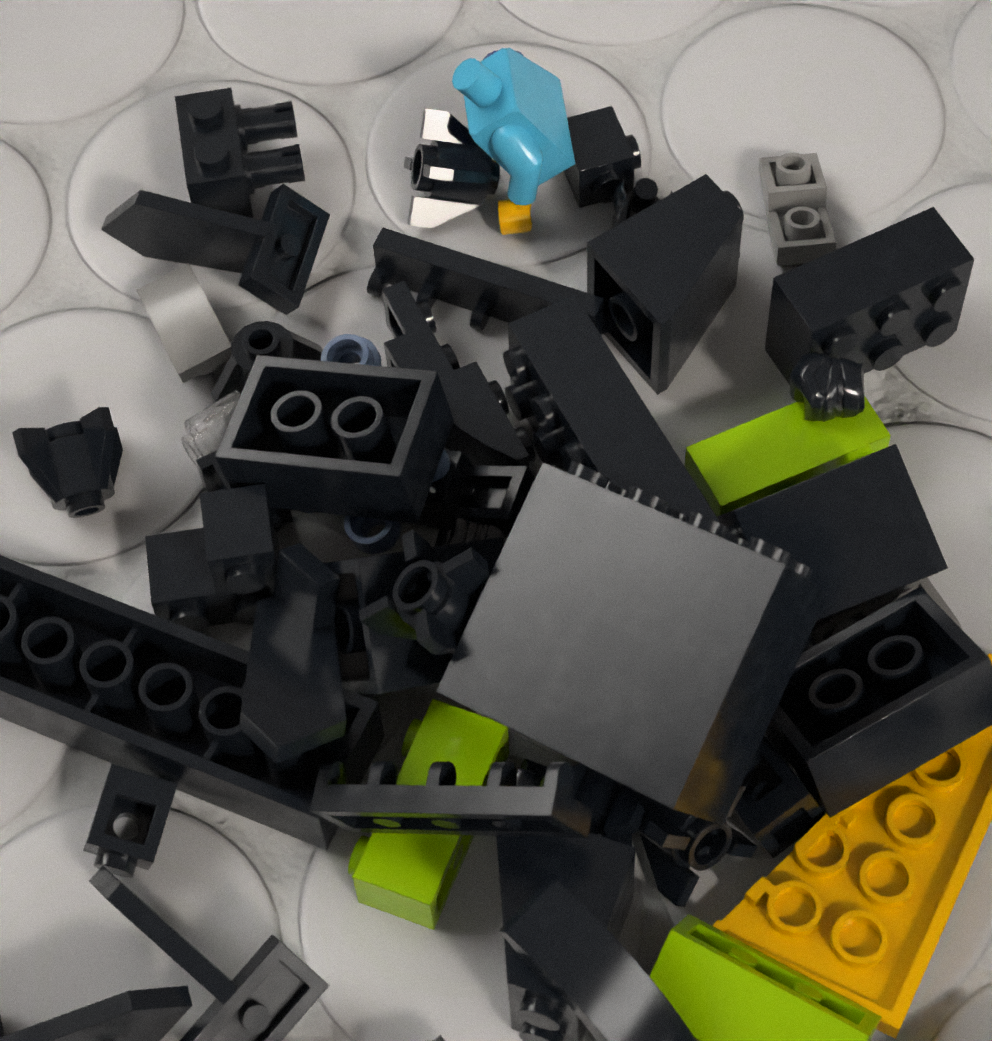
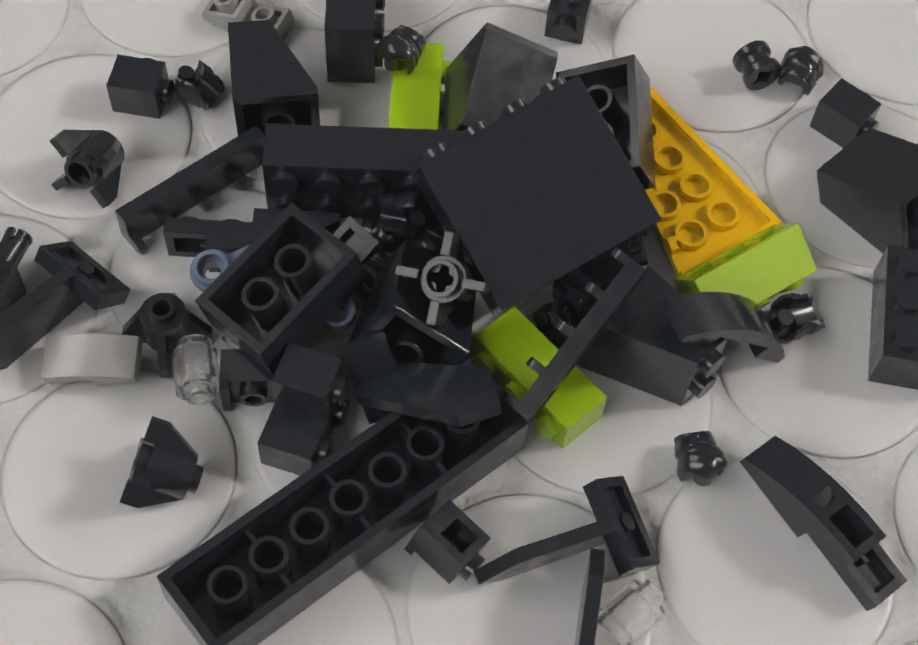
camera: 70 degrees left, 0 degrees up
(520, 122) = (100, 100): medium azure torso -> none

